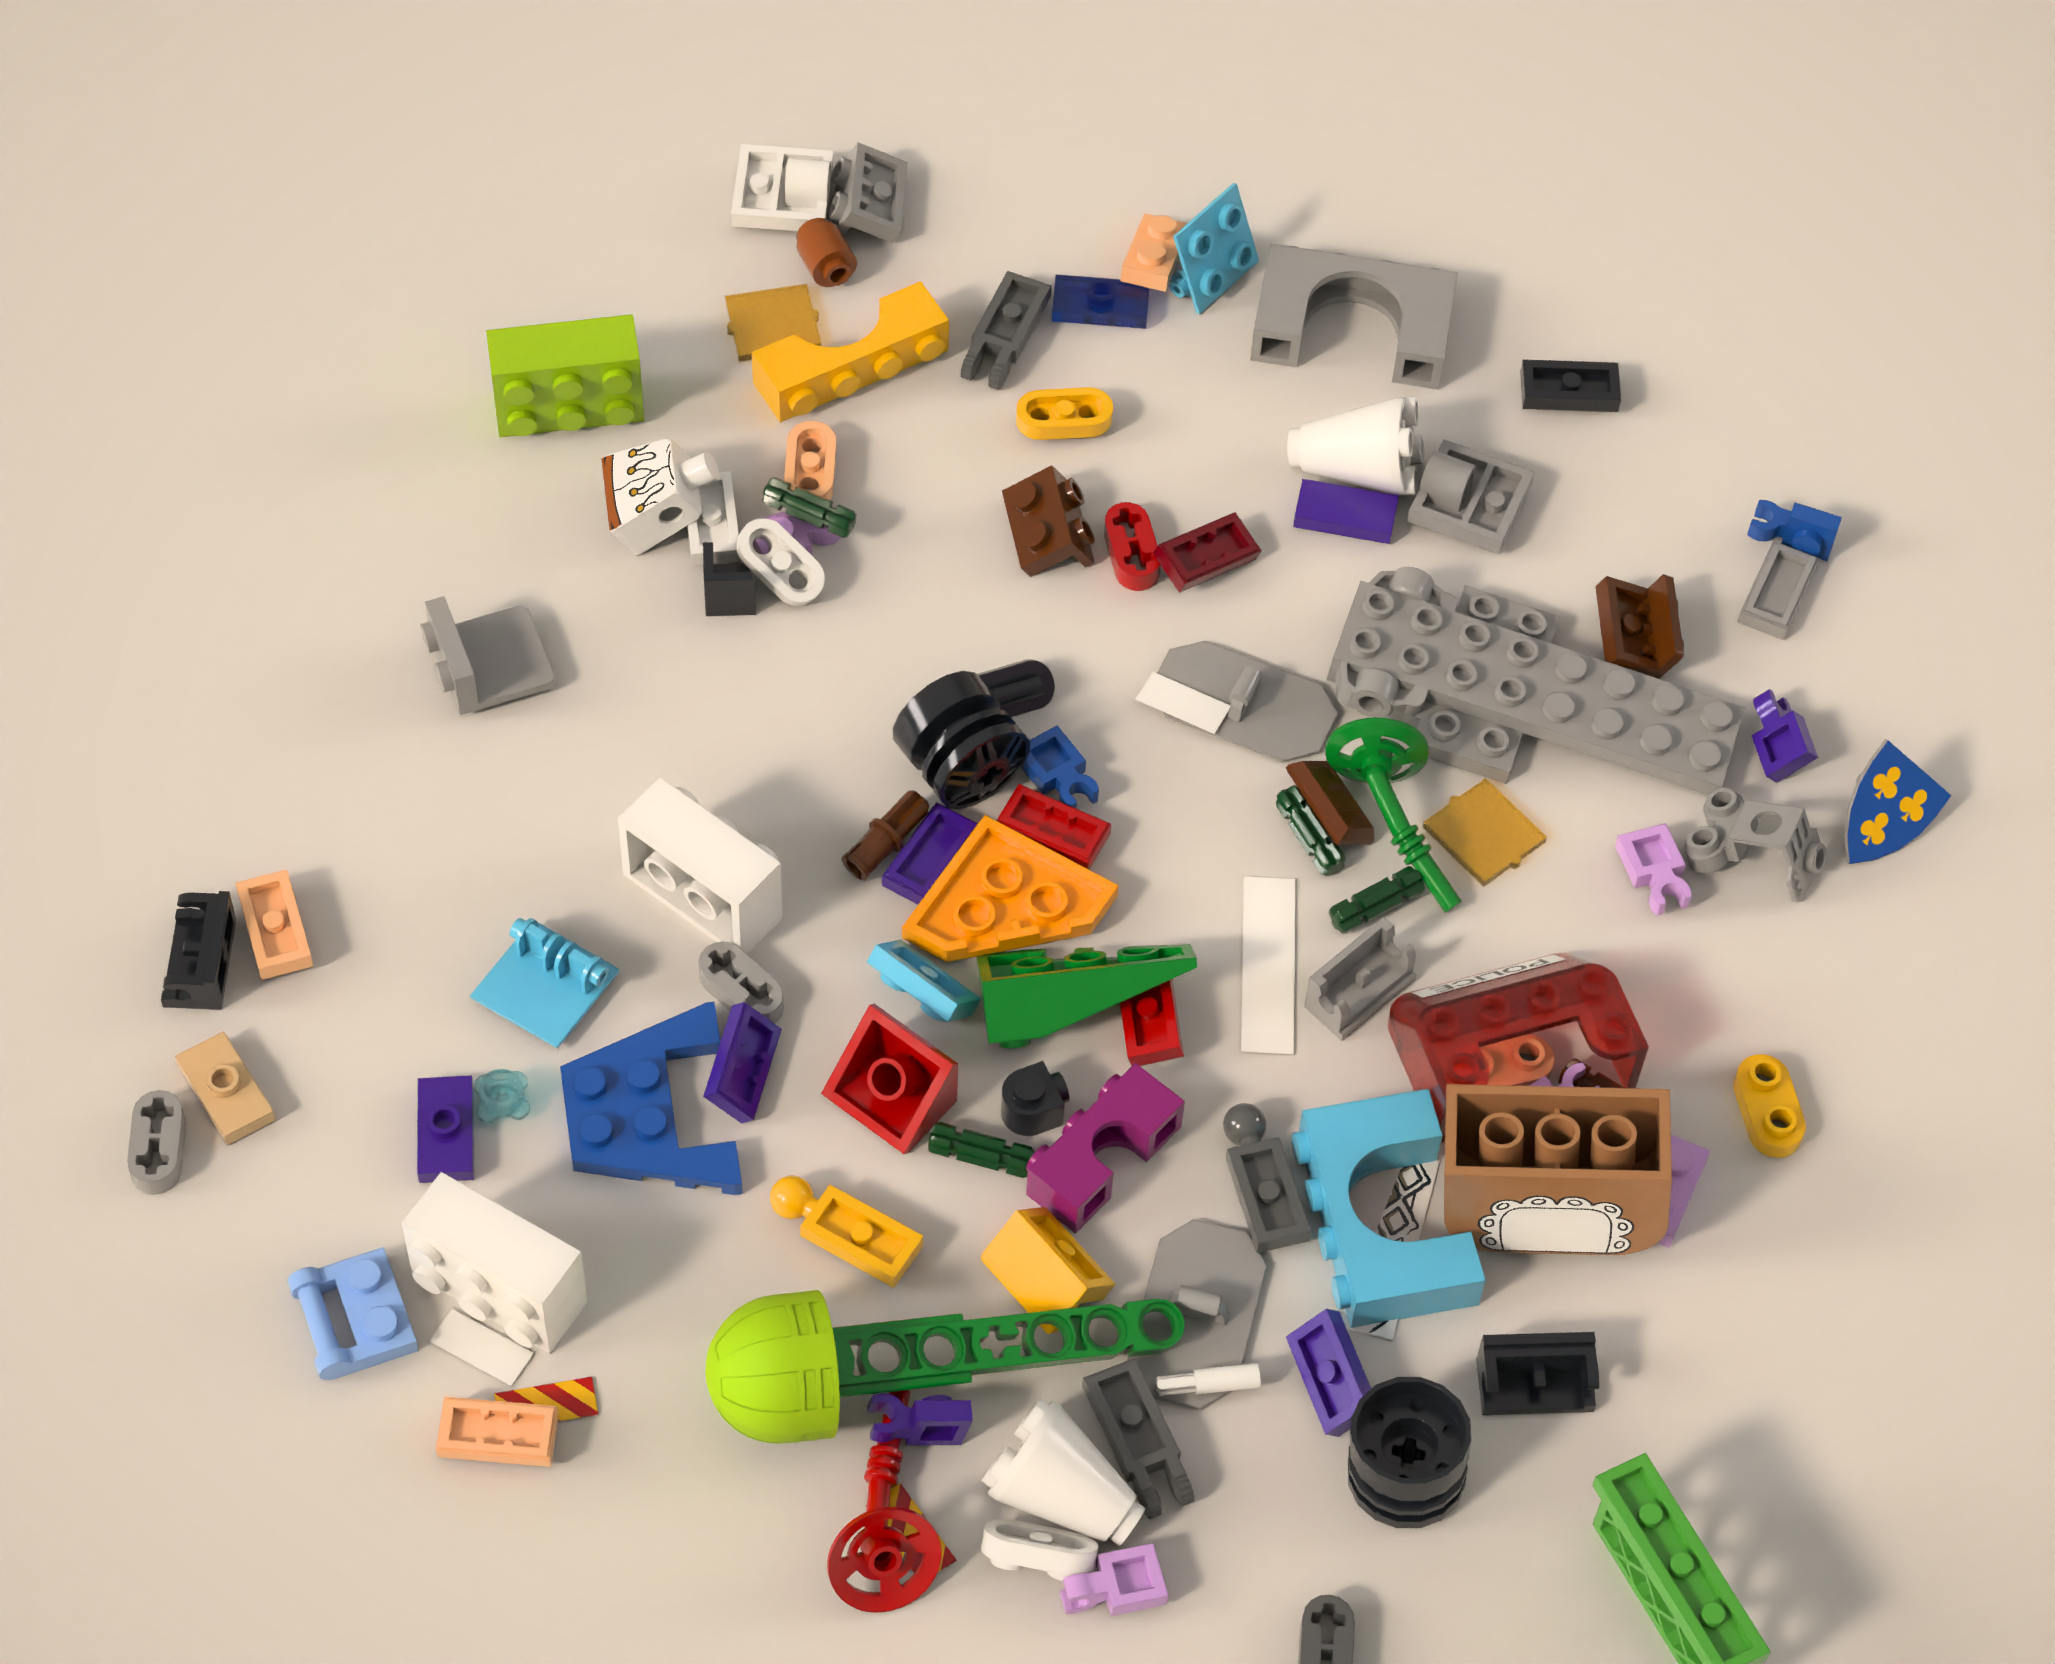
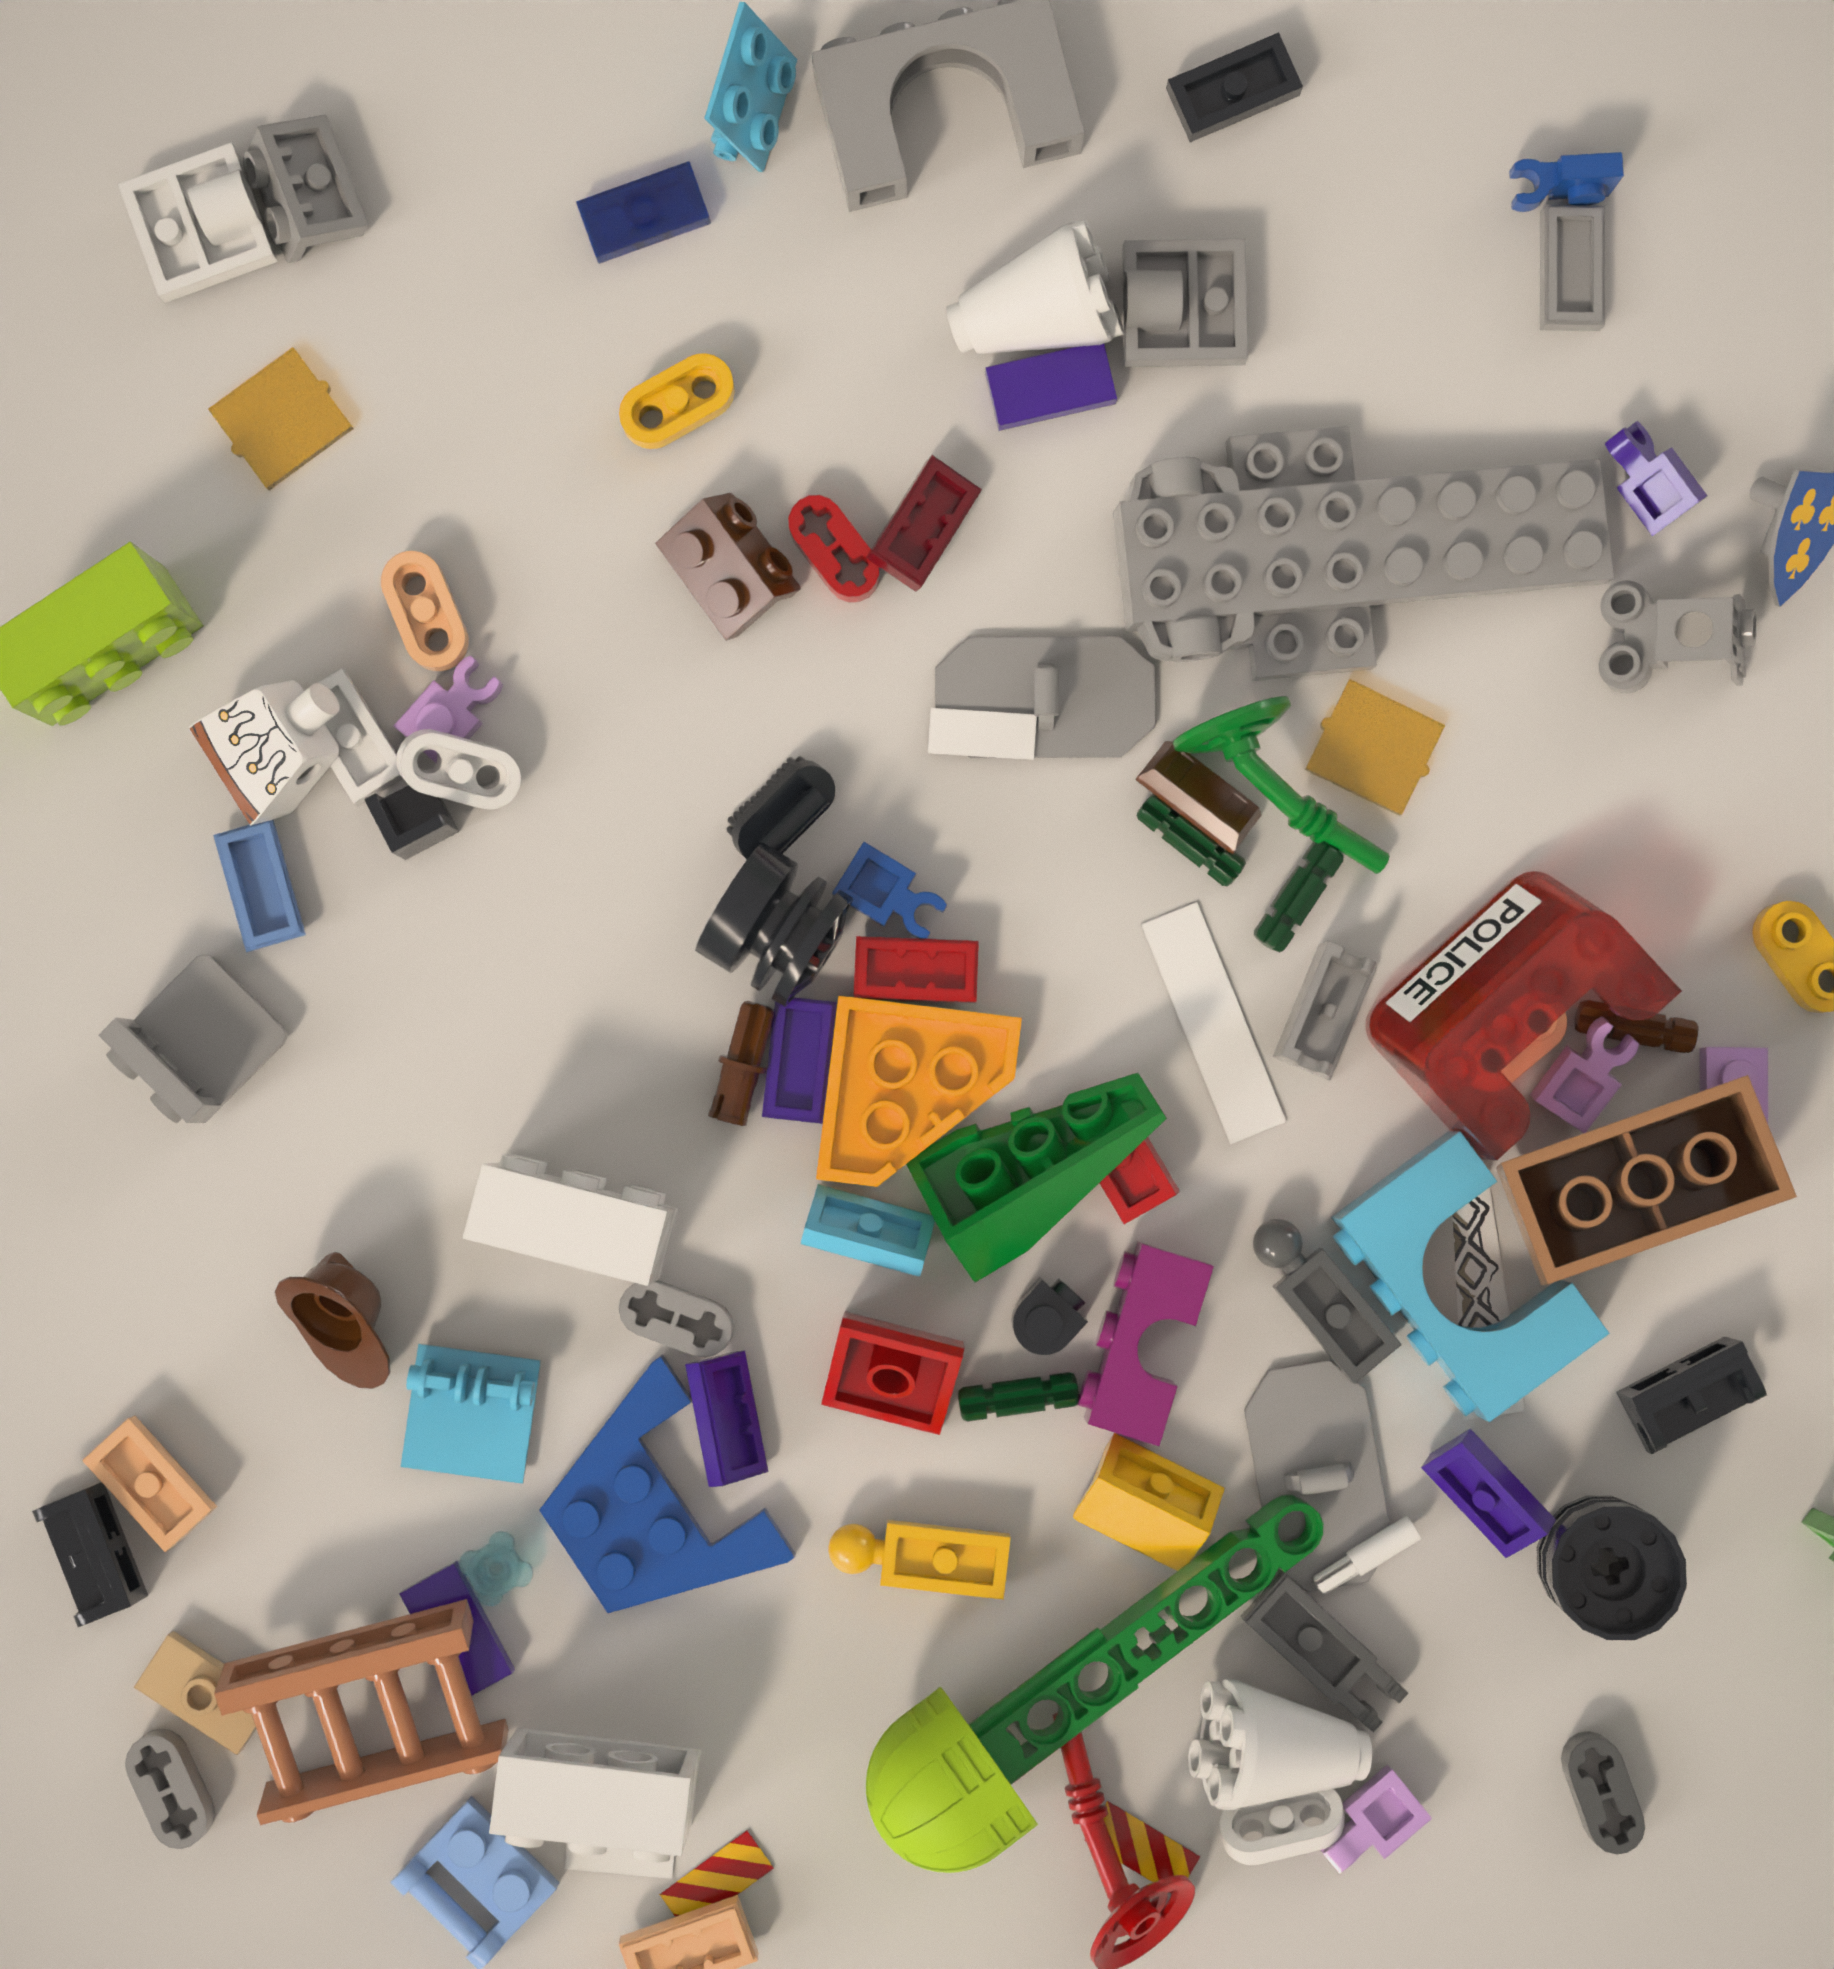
camera: 20 degrees left, 30 degrees up
(327, 1085) = (351, 1655): none -> nougat fence
(482, 869) = (337, 1318): none -> reddish brown piece
(590, 584) = (259, 885): none -> medium blue tile
(802, 375) = (356, 492): yellow arch -> none
(809, 507) = (455, 680): dark green axle -> none
(825, 252) = (295, 297): dark orange brick -> none
(928, 1422) = (1117, 1739): dark purple plate -> none
(1006, 326) = (553, 303): dark grey hinge -> none
(1152, 253) = (676, 114): light nougat plate -> none
(1640, 625) = (1445, 401): reddish brown bracket -> none
(1654, 861) = (1573, 708): lavender plate -> none

